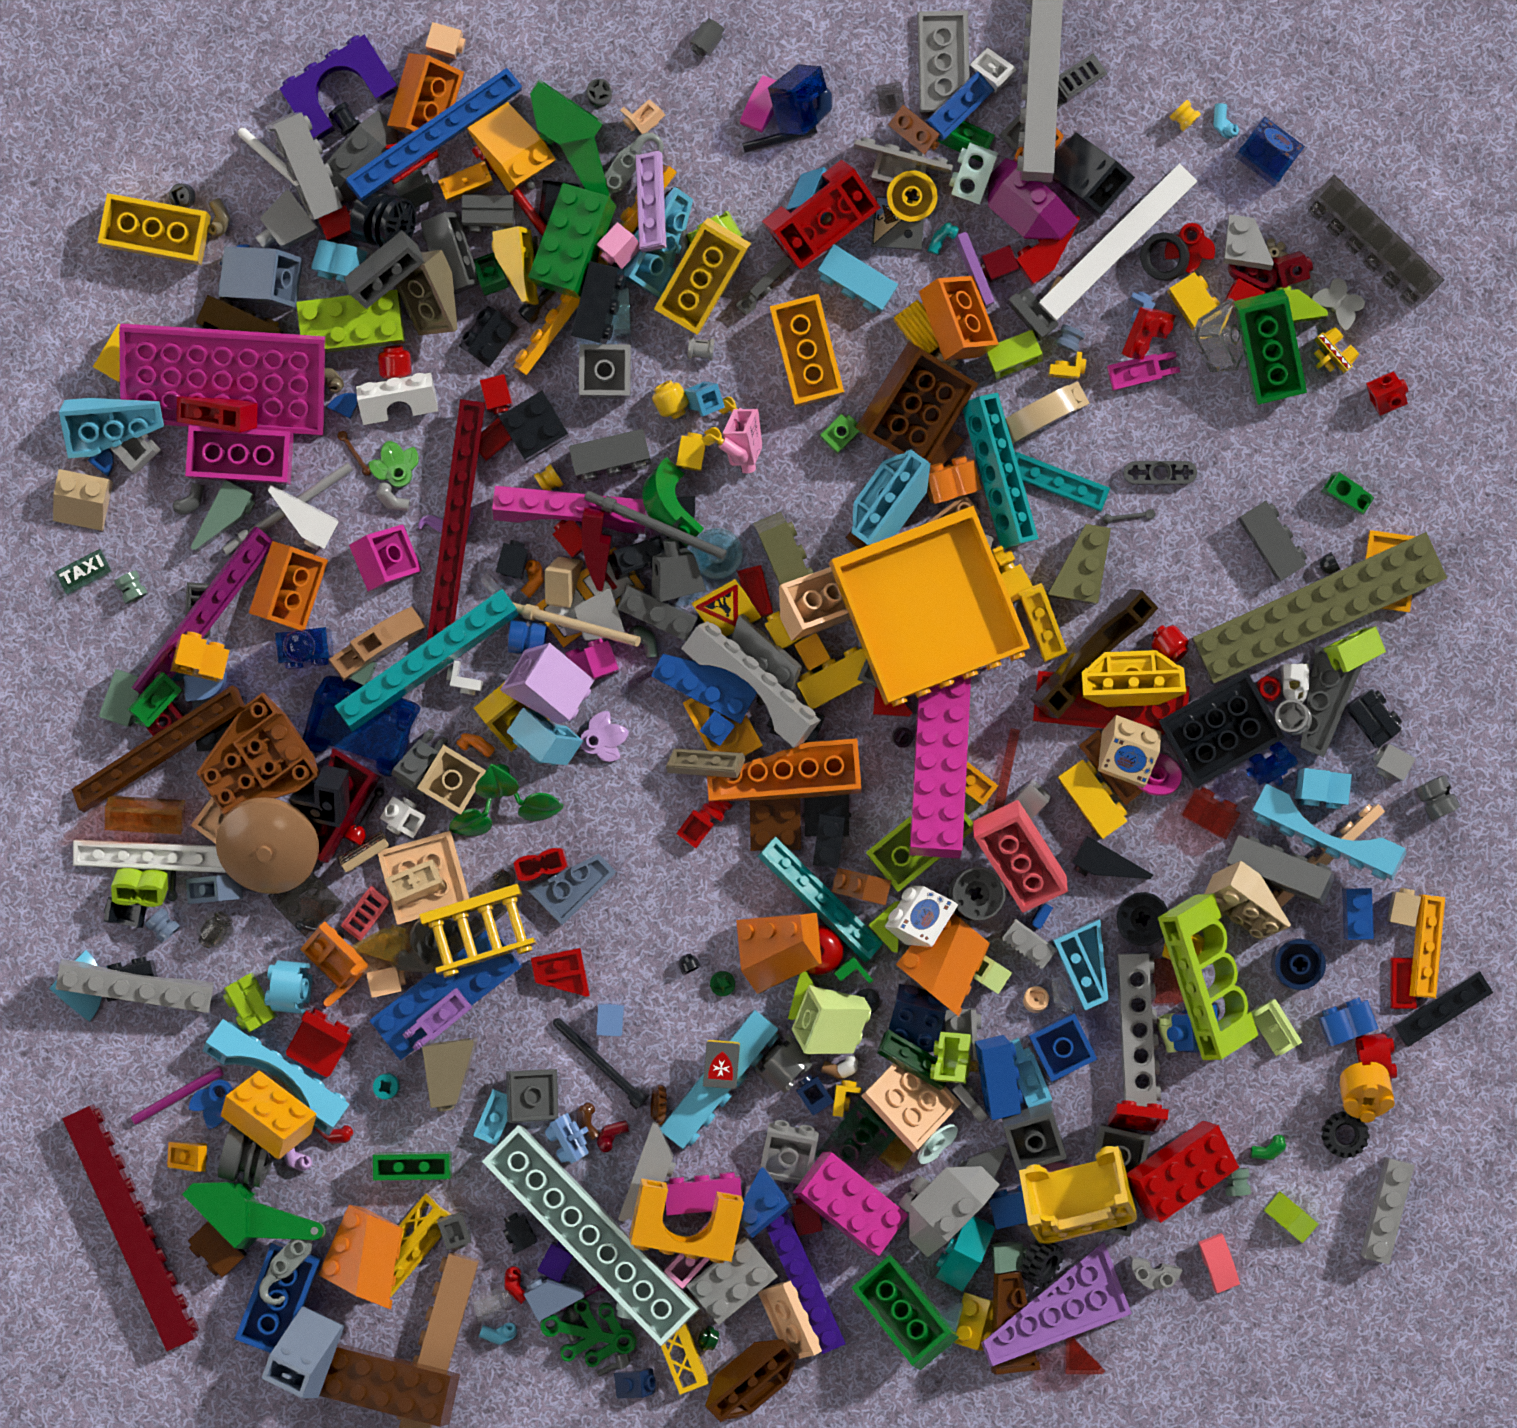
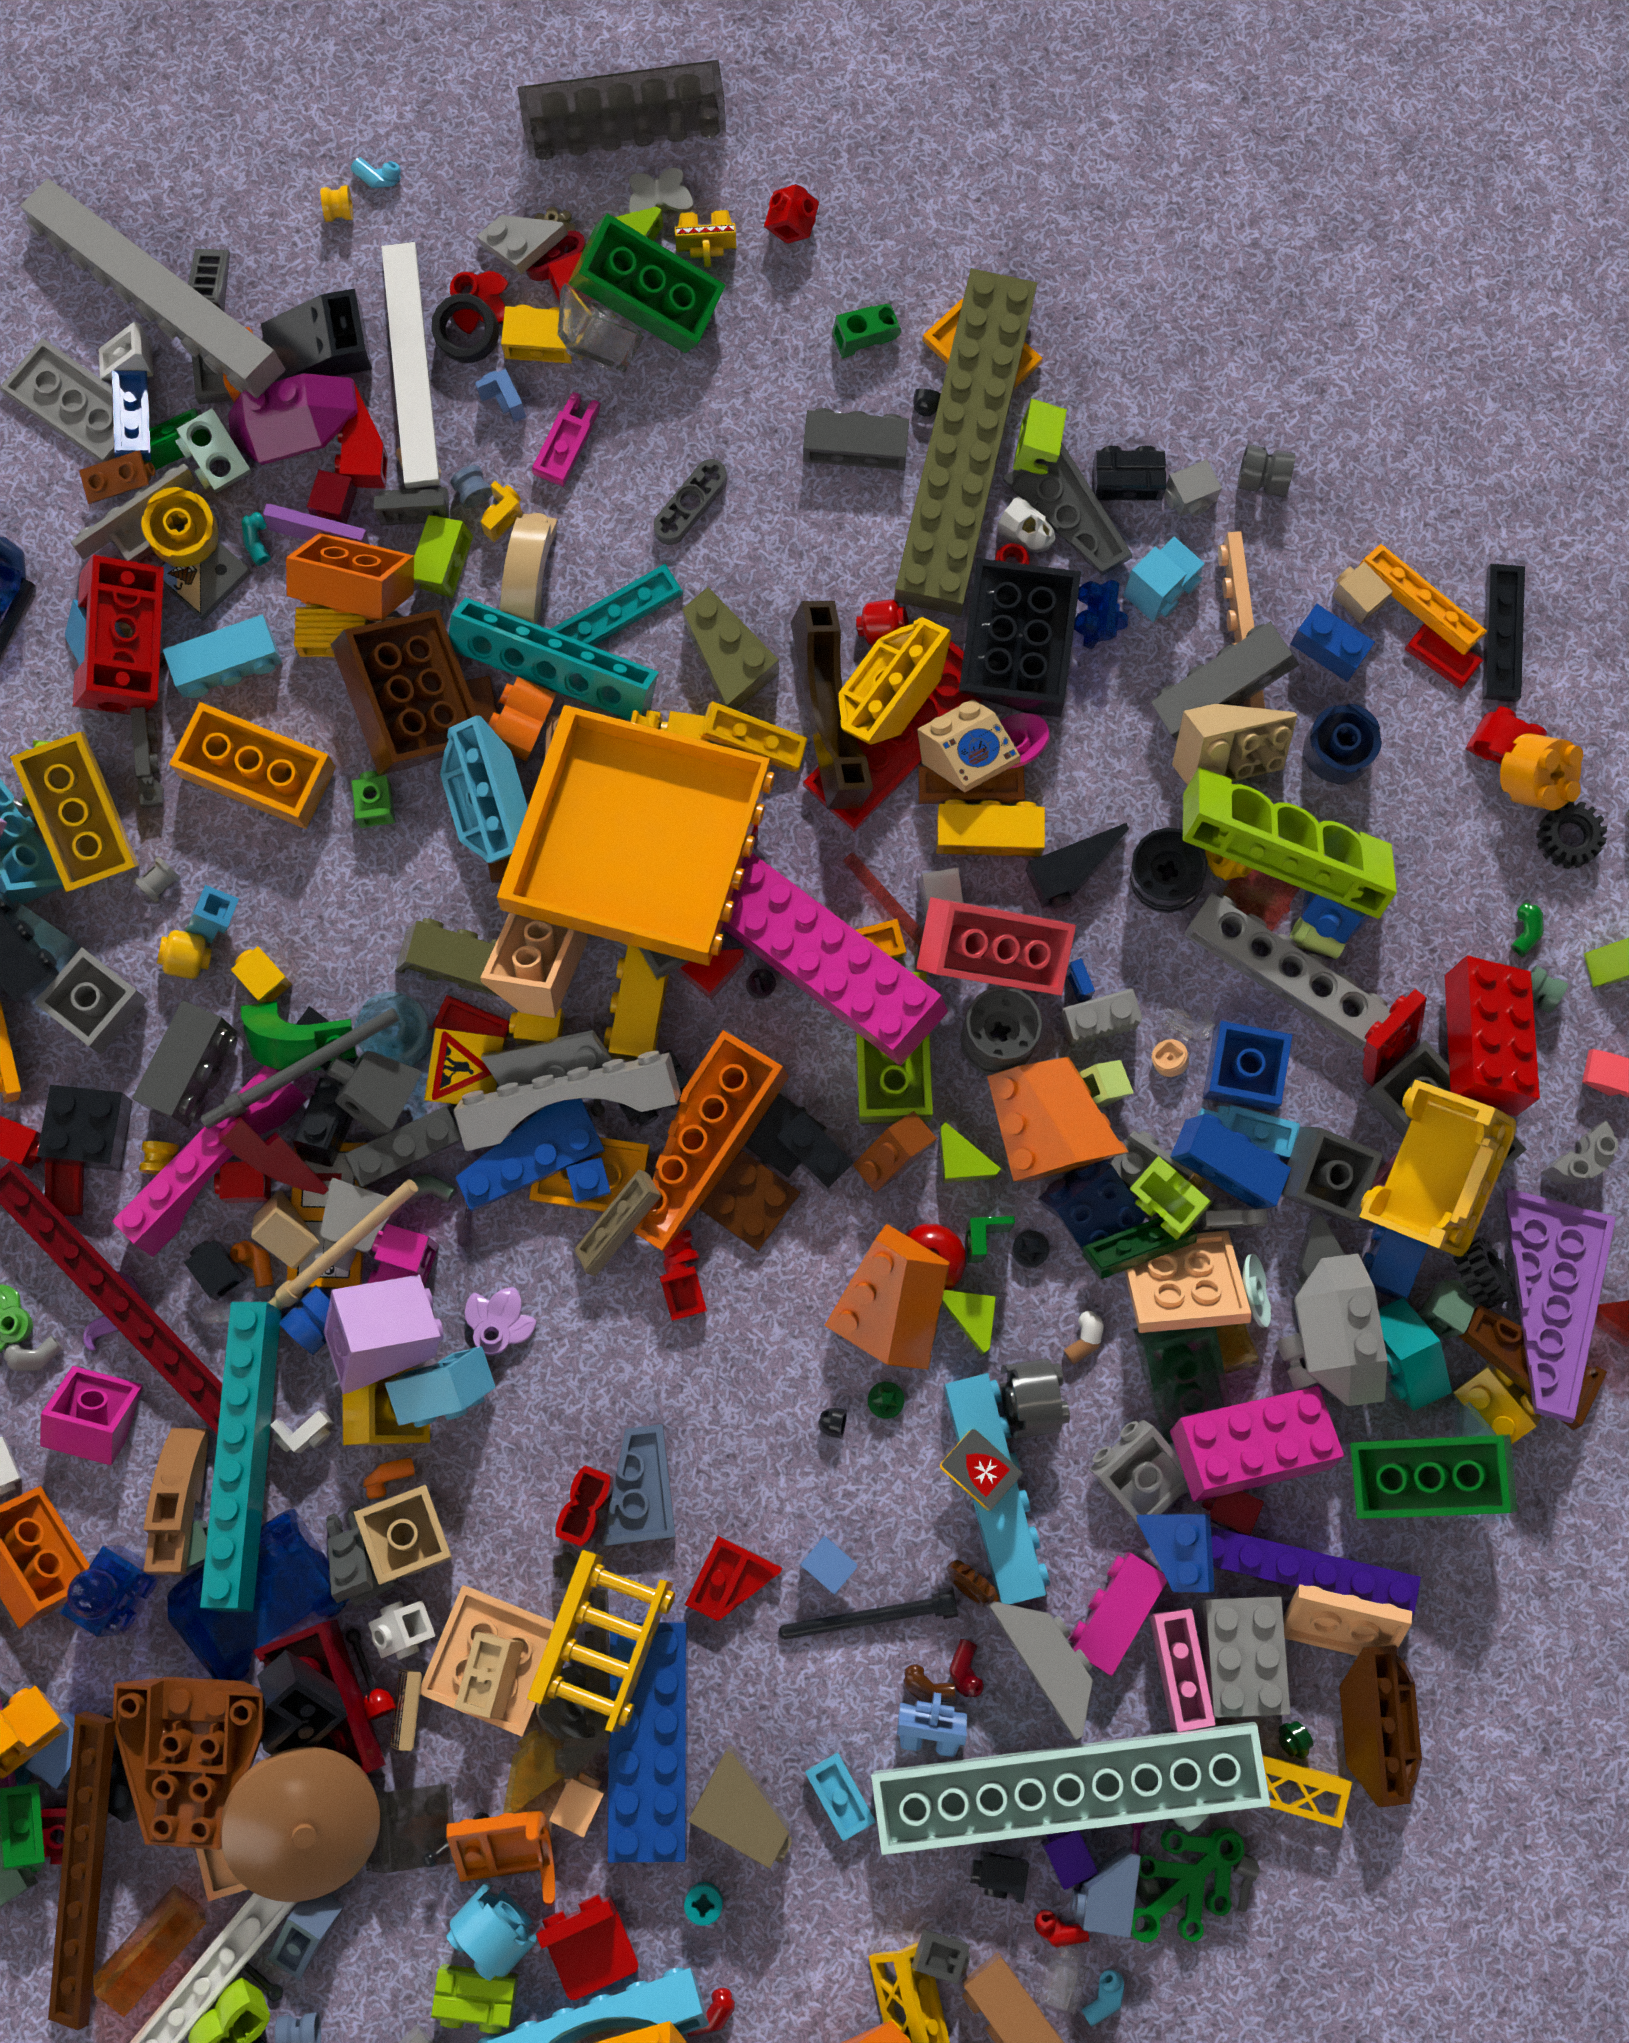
camera: 55 degrees left, 10 degrees down
(214, 929) = (354, 1971): clear smoke head -> none
(377, 895) = (472, 1733): coral slope -> none
(412, 1165) = (823, 1947): green brick -> none
(439, 1017) = (669, 1771): medium lavender hinge -> none
(499, 783) = (449, 1477): green plant -> none
(532, 1095) = (848, 1730): dark grey tile -> none
(635, 1383) = (1287, 1874): dark blue bracket -> none
(713, 1242) = (1187, 1642): light orange arch -> none
(740, 437) = (284, 906): bright pink torso -> none
(812, 651) = (586, 1009): light orange panel -> none
(818, 1103) = (1108, 1390): dark blue brick -> none
(820, 899) = (873, 1211): teal plate -> none
(830, 1021) = (1024, 1305): yellowish green slope -> none
(841, 1102) = (1123, 1365): yellow bracket -> none
(890, 97) = (64, 483): clear smoke slope -> none
(920, 916) = (980, 1109): white slope -> none
(1084, 963) = (1170, 972): medium azure wedge -> none
(1147, 324) = (524, 390): red plate -> none
(1149, 514) = (726, 546): dark grey hinge -> none
(1210, 813) = (1102, 716): clear red brick -> none
(1269, 151) = (445, 154): clear blue slope -> none
(1275, 1027) = (1396, 819): yellowish green hinge -> none
(1284, 268) = (584, 210): dark red brick -> none
(1293, 717) = (1065, 547): light grey wheel -> none
(1347, 1022) = (1445, 741): blue brick -> none
(1376, 854) = (1287, 565): medium azure arch -> none

